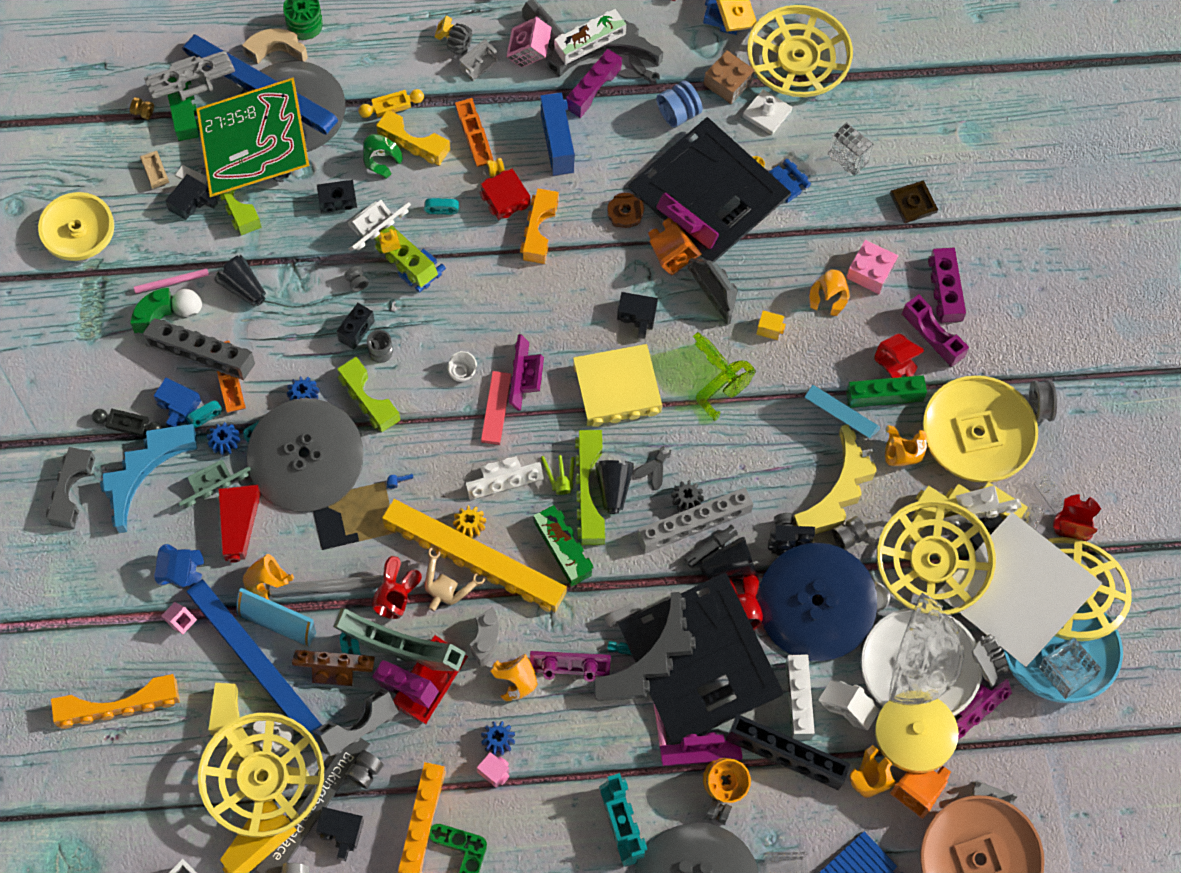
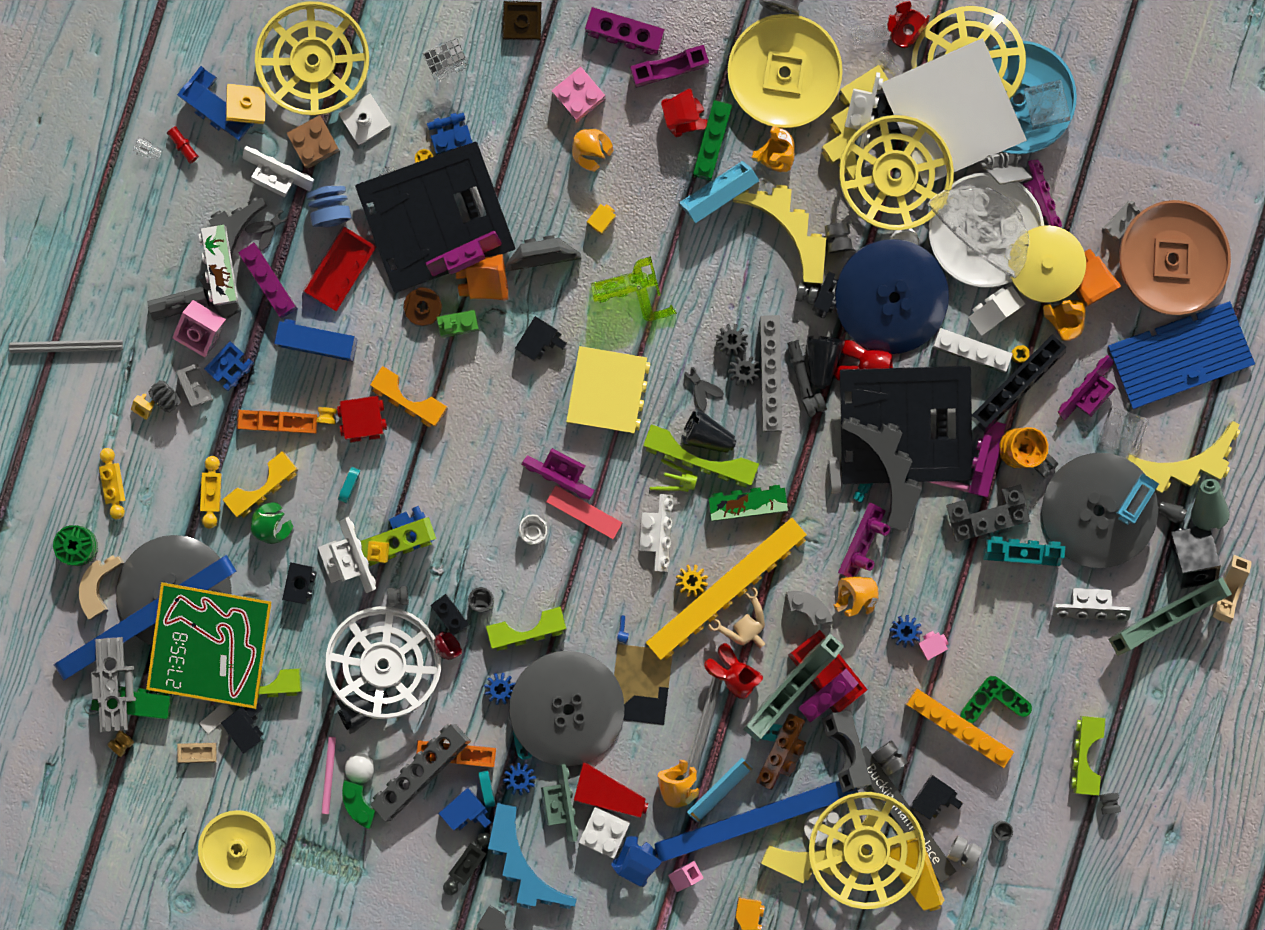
camera: 60 degrees left, 20 degrees up
(197, 529) = (604, 832): none -> white brick
(293, 275) = (382, 652): none -> white dish
(325, 333) = (447, 646): none -> dark red hair
(368, 28) = (112, 483): none -> yellow plate
(509, 76) = (224, 362): none -> blue plate
(622, 240) = (458, 323): none -> bright green hinge
(629, 134) = (339, 268): none -> red slope
(641, 779) = (990, 520): none -> dark grey bracket
(682, 571) = (814, 404): none -> dark grey wheel
(687, 57) = (274, 174): none -> white bracket
(704, 472) = (725, 339): none -> dark grey gear
(811, 829) = (1091, 392): none -> magenta bracket
(820, 739) = (1026, 354): none -> yellow bush

